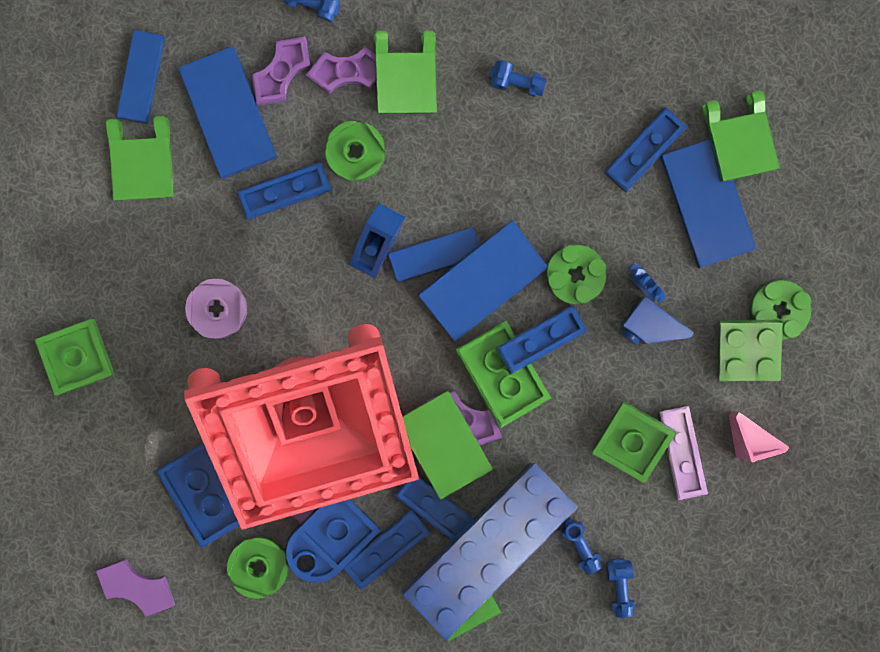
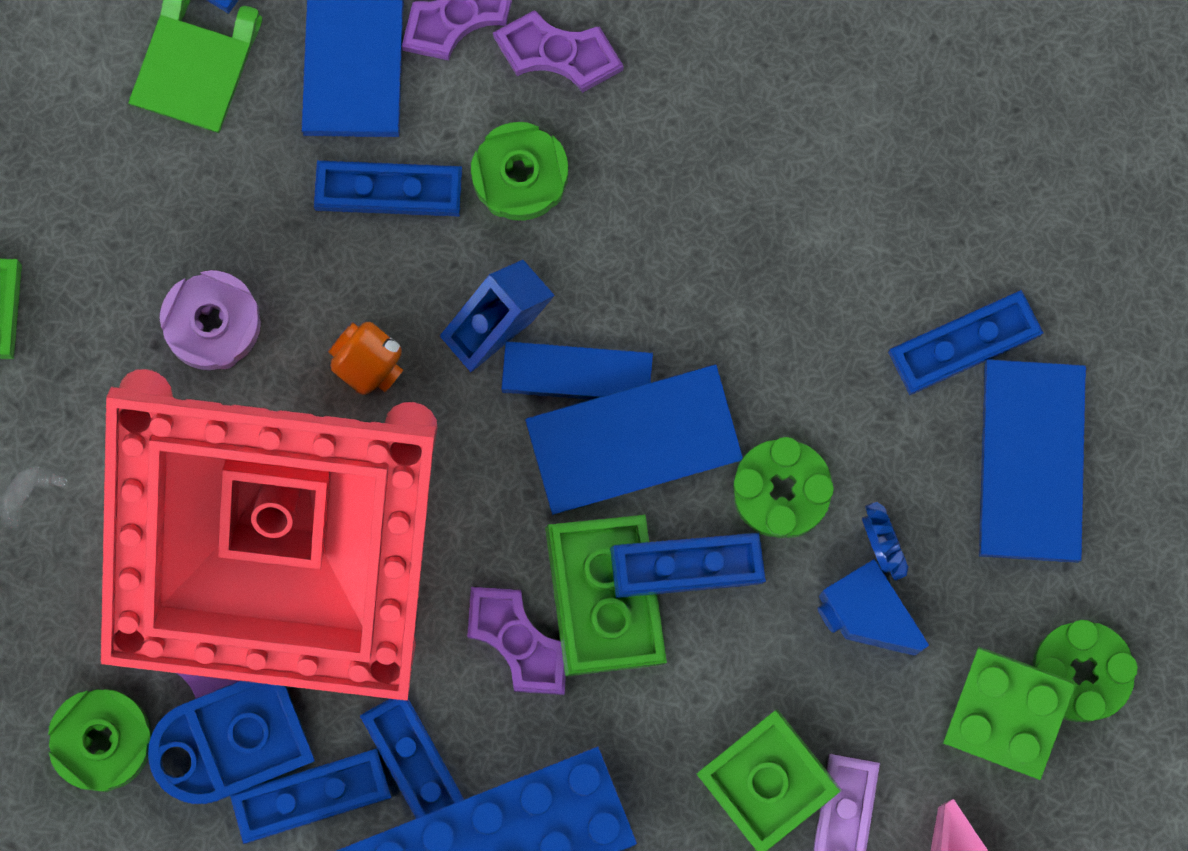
camera: 25 degrees right, 10 degrees down
(199, 495) = (59, 592): blue tile -> none
(314, 295) = (366, 358): none -> orange head
(405, 79) = (640, 98): bright green flag -> none
(445, 445) = (470, 666): bright green tile -> none
(502, 75) = (788, 147): blue bar -> none
(741, 143) = (1117, 390): bright green flag -> none

